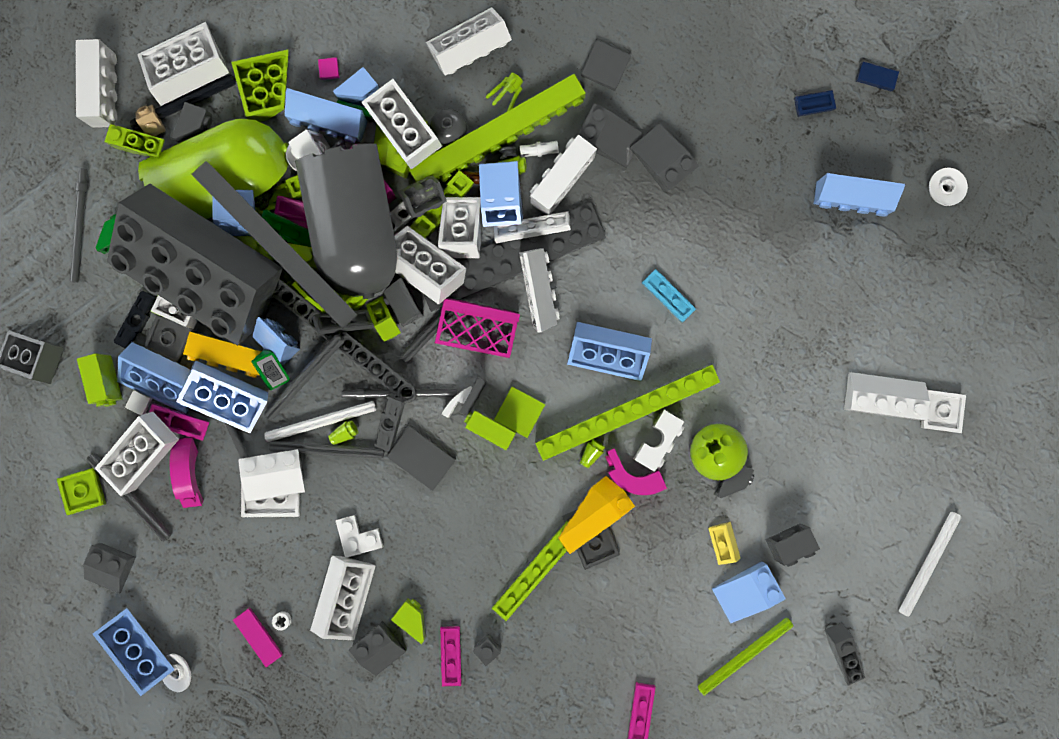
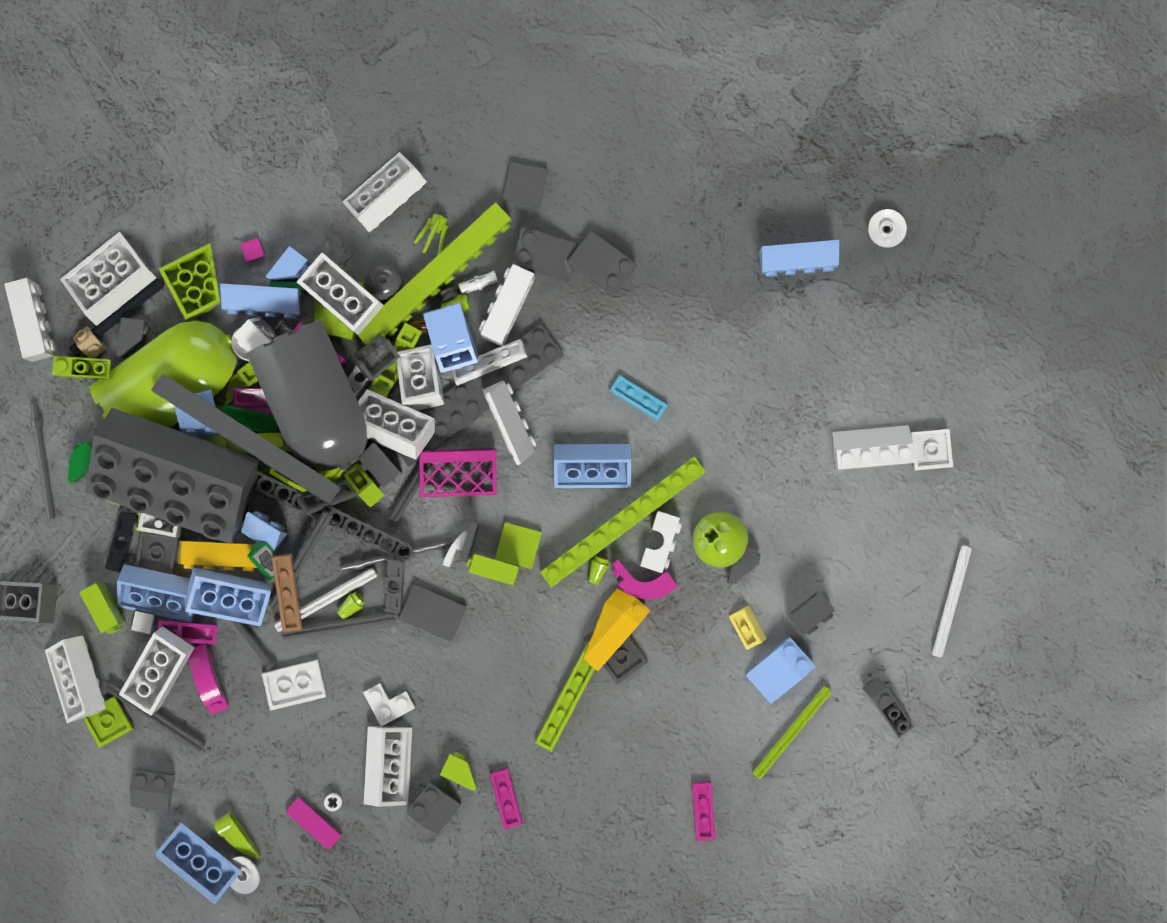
camera: 10 degrees left, 0 degrees up
(58, 442) = (75, 678): none -> white slope
(179, 630) = (233, 832): none -> lime piece
(271, 475) = (292, 662): white slope -> none
(283, 406) = (287, 592): none -> medium nougat tile
(487, 650) = (539, 783): dark grey brick -> none
(815, 103) = (739, 174): dark blue tile -> none
(877, 76) = (795, 134): dark blue tile -> none

